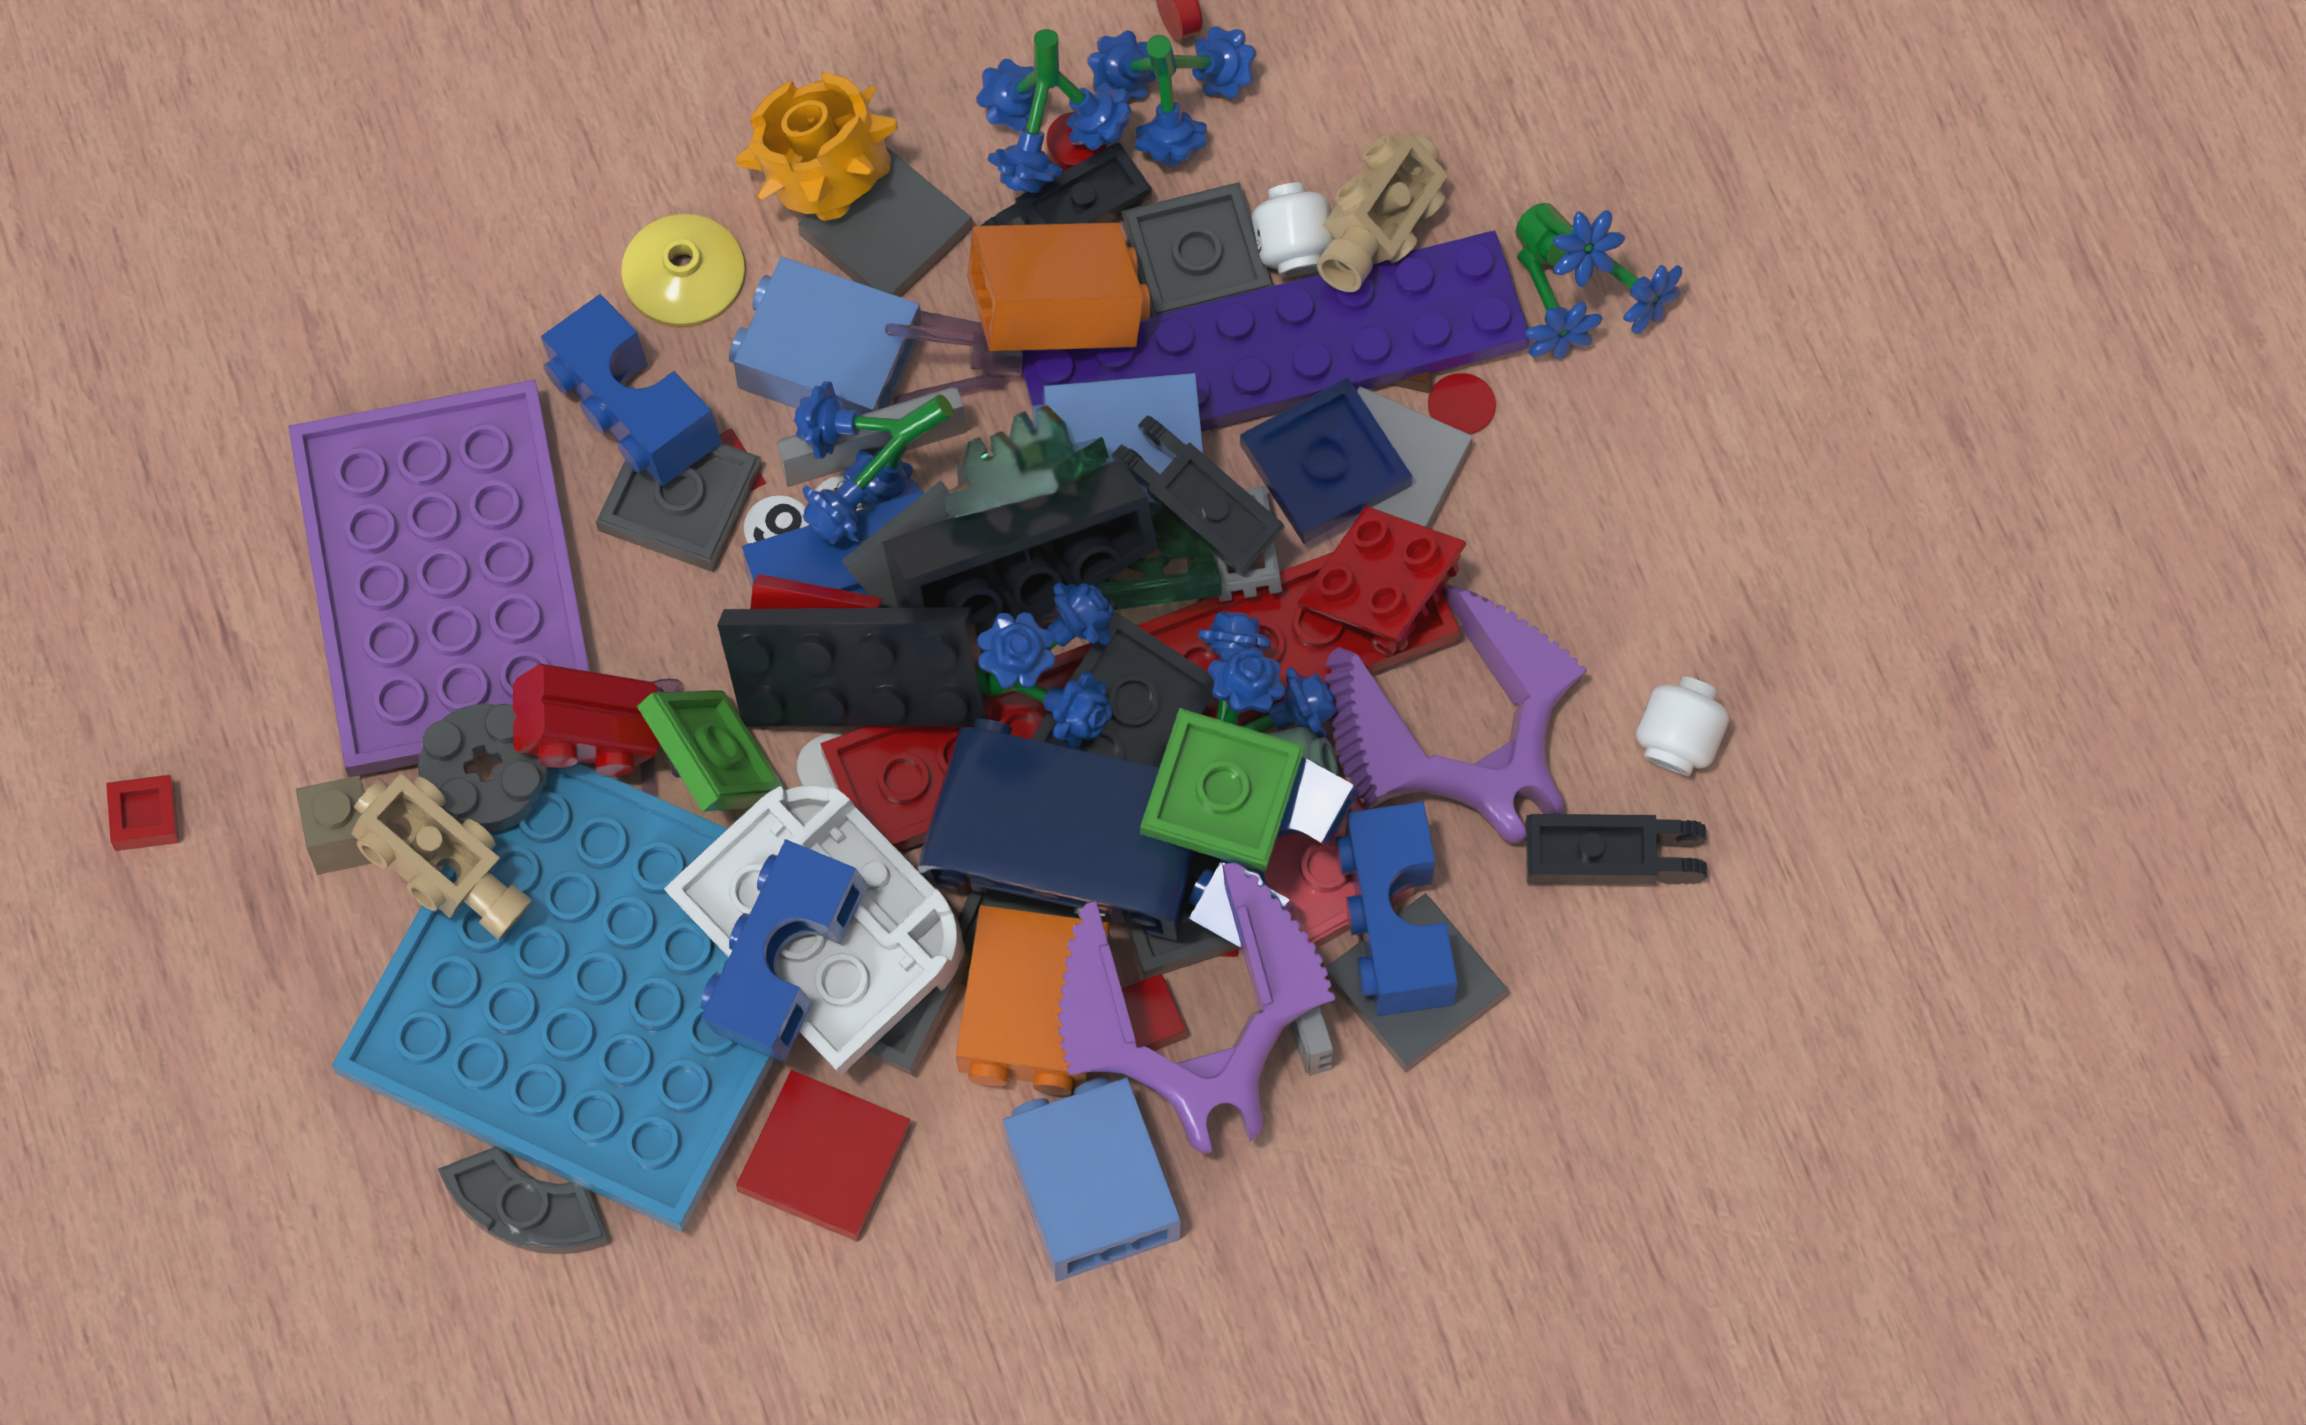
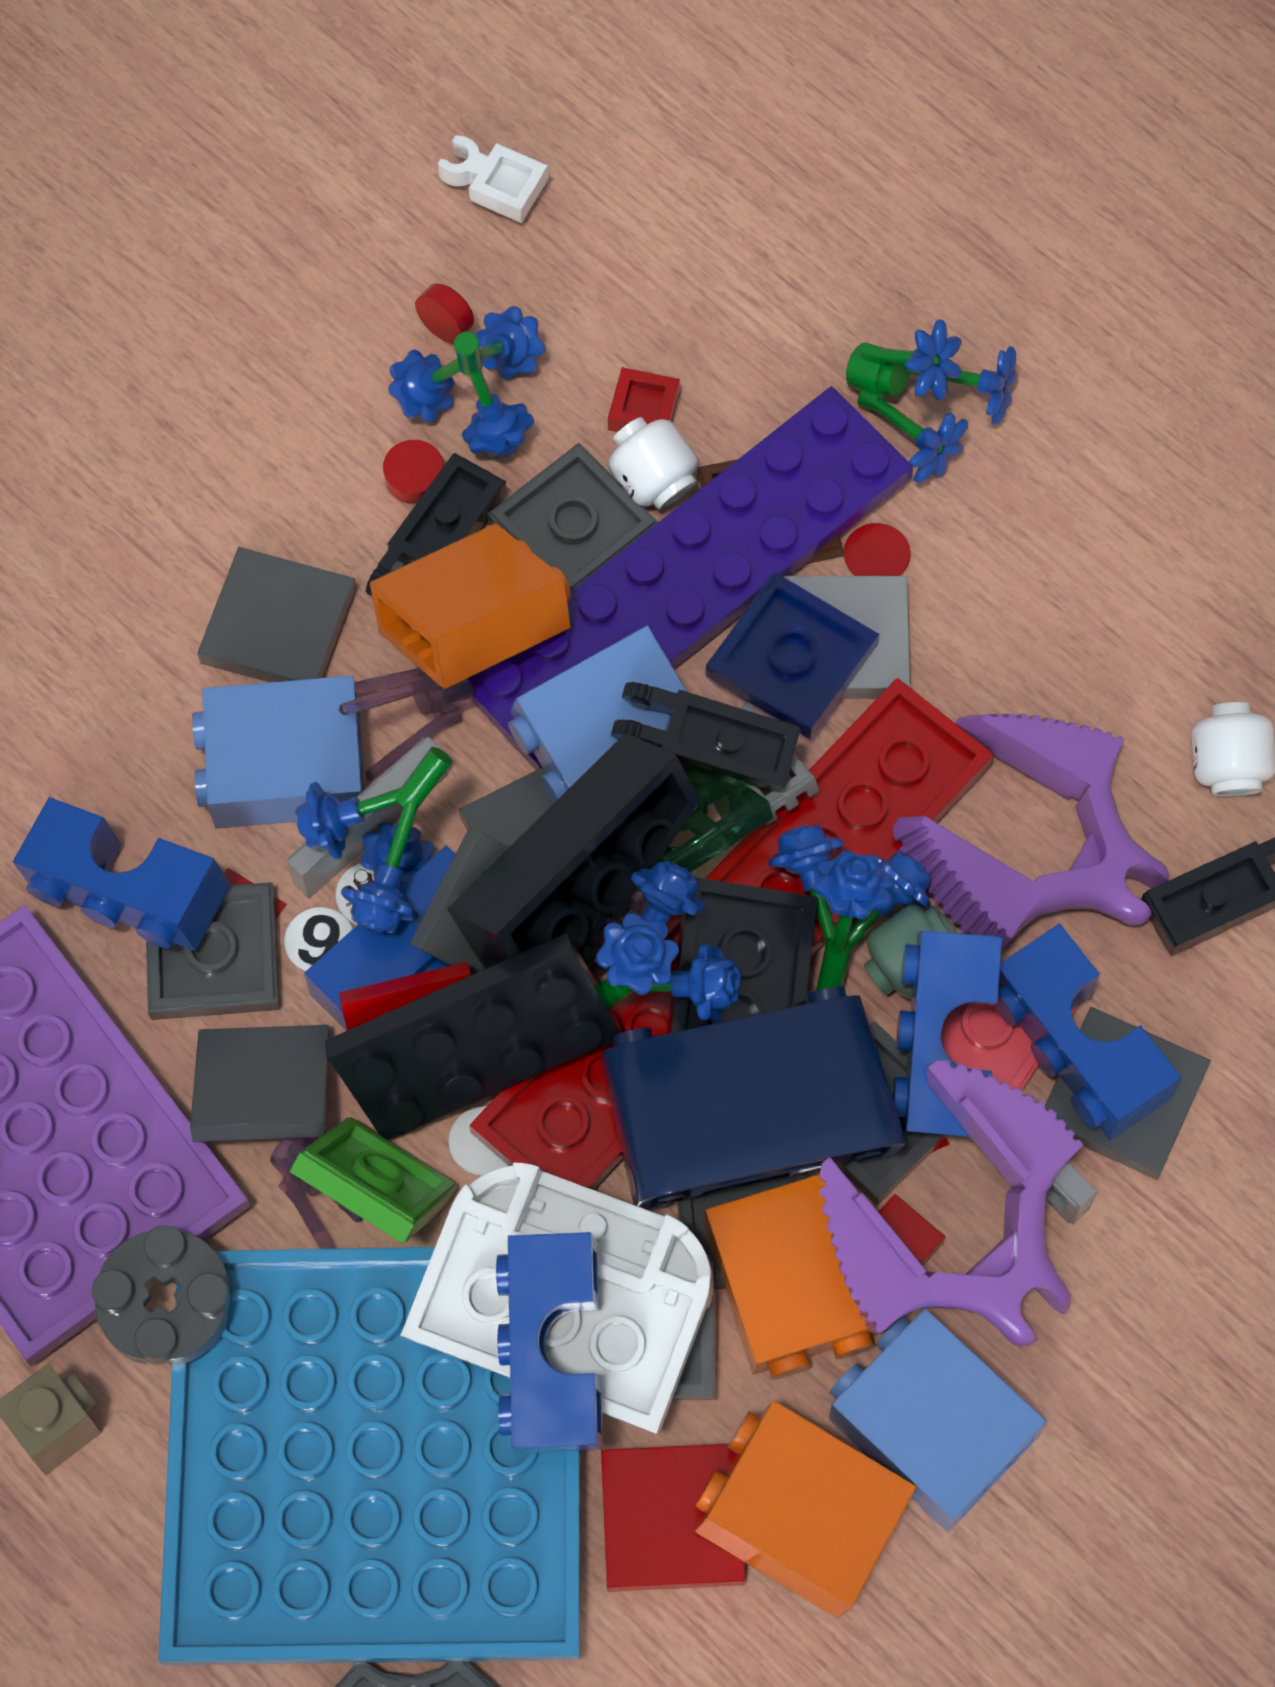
camera: 25 degrees left, 0 degrees up
(433, 842) = (152, 1391): tan brick -> none
(582, 718) = (240, 1206): red brick -> none
(657, 625) = (260, 1083): none -> dark grey tile
(689, 292) = (115, 766): light yellow dish -> none
(818, 145) = (184, 572): light orange brick -> none
(933, 1194) = (802, 1507): none -> orange brick
(1020, 95) = (339, 453): blue plant -> none
(1022, 465) = (551, 779): clear green piece -> none
(1222, 790) = (889, 997): bright green tile -> none
(1319, 166) = (642, 396): none -> red tile
(1381, 208) = (724, 410): tan brick -> none
(1384, 577) = (905, 735): red hinge -> none

